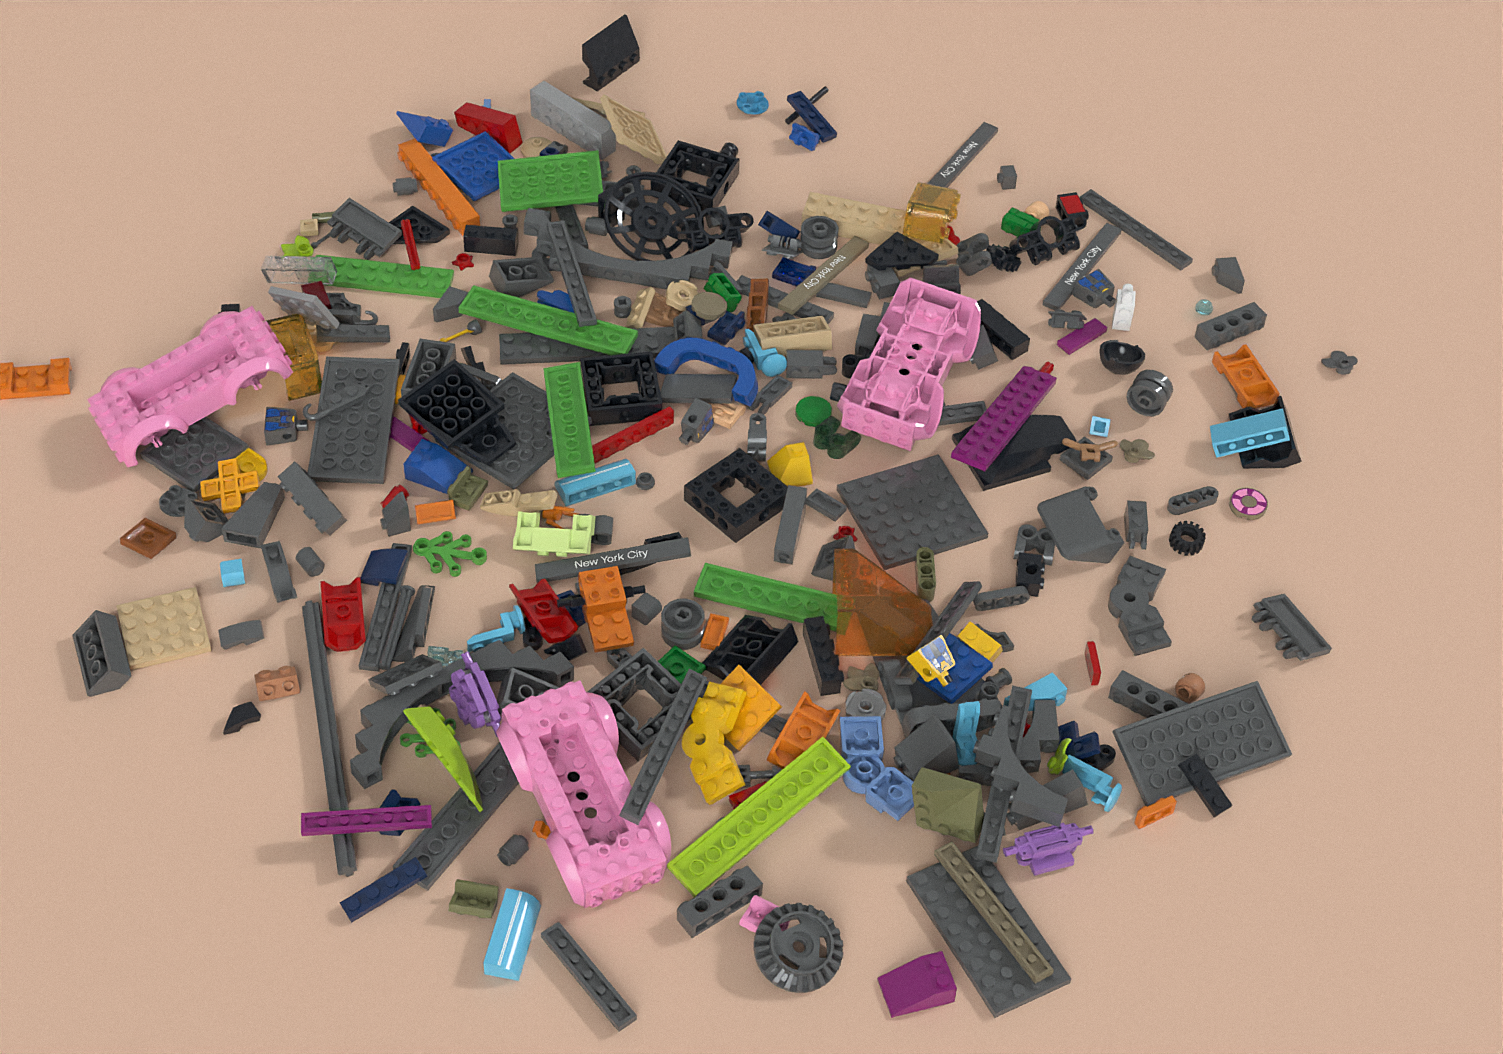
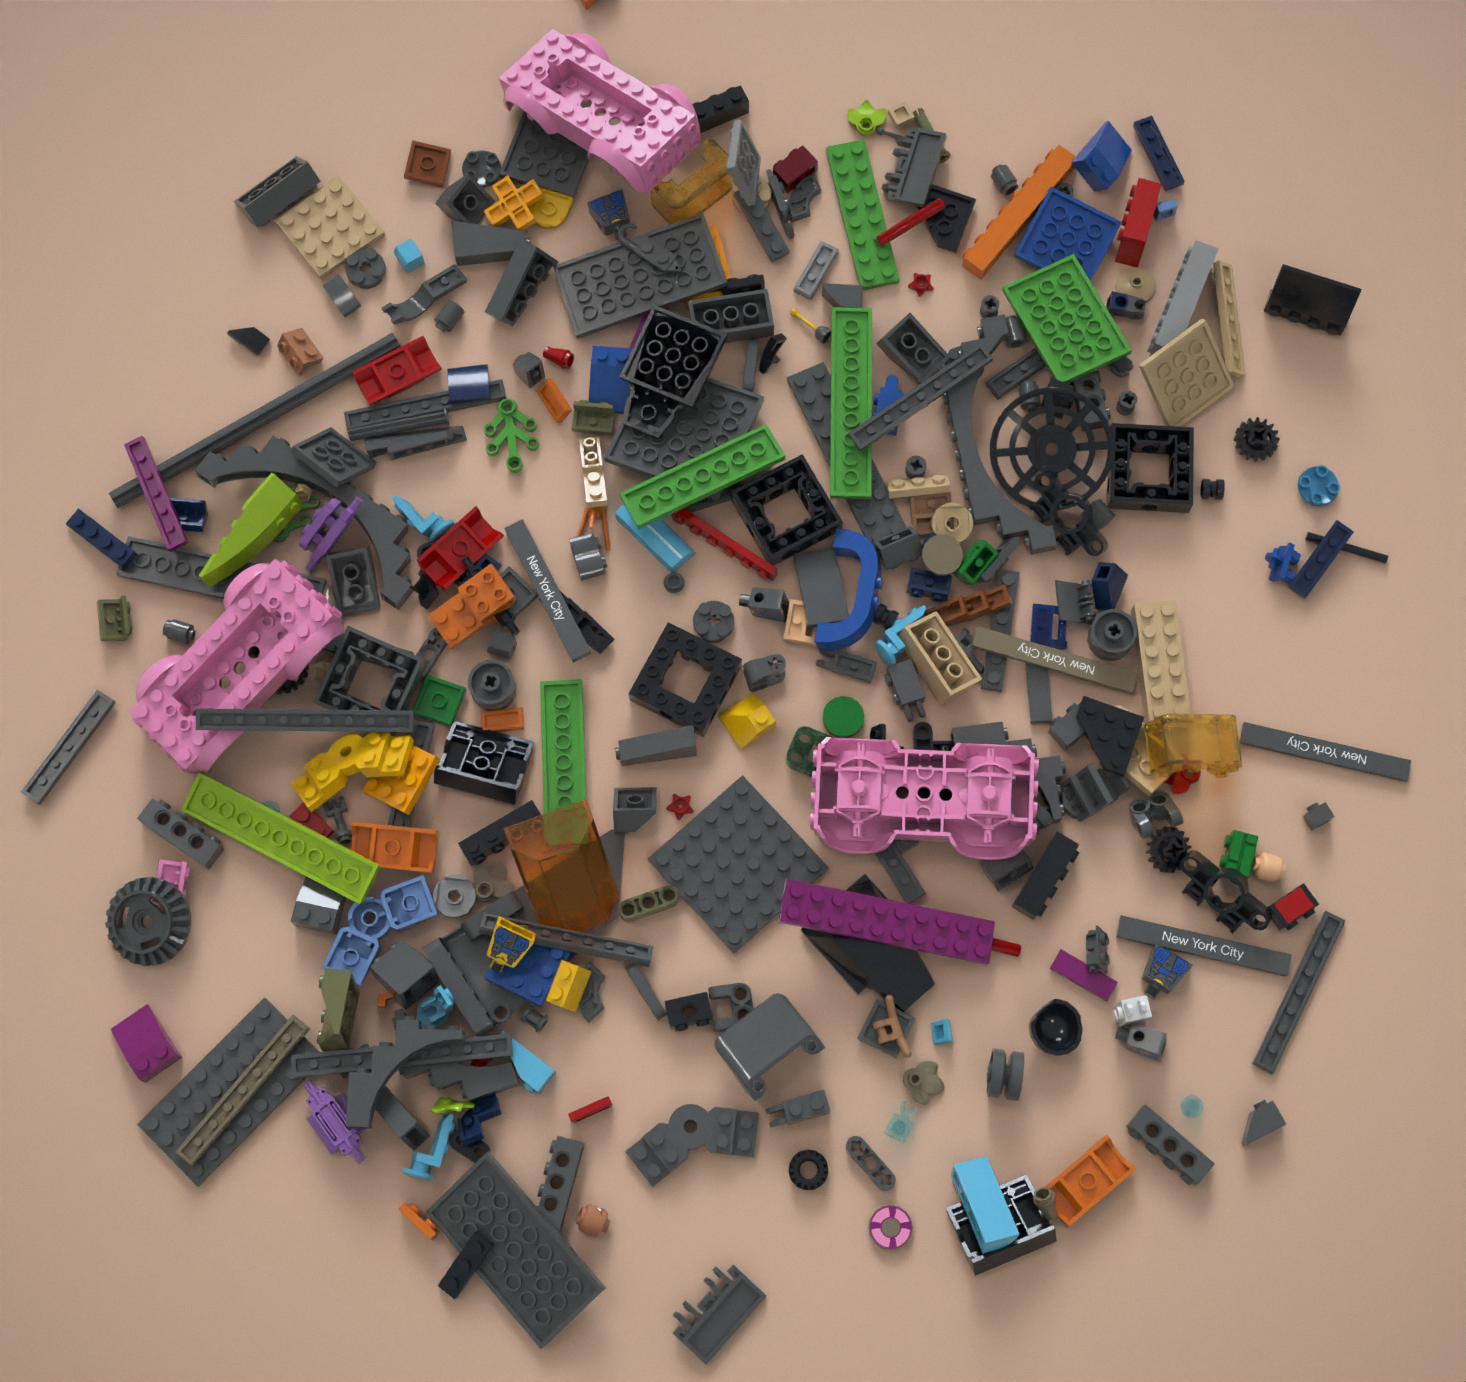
camera: 75 degrees right, 25 degrees up
(216, 604) = (358, 260): none -> dark grey plate
(298, 269) = (828, 127): clear wedge -> none
(413, 317) = (816, 270): none -> light grey tile
(435, 101) = (1158, 153): none -> dark blue plate
(444, 655) = (375, 479): clear light blue plate -> none
(490, 240) = (956, 297): black brick -> none
(511, 935) = (90, 665): medium azure brick -> none
(553, 540) = (551, 523): yellowish green bracket -> none
(687, 459) = (720, 630): none -> dark grey plate
(700, 120) = (1257, 448): none -> black gear
(826, 505) = (710, 772): dark grey plate -> none
(836, 809) = (318, 908): none -> dark grey slope
(1148, 311) = (1151, 1045): none -> dark grey torso
(1166, 472) = (900, 1125): none -> clear light blue plate
(1258, 397) = (1045, 1201): none -> dark tan cone
(1341, 362) = (1170, 1288): dark grey plate -> none

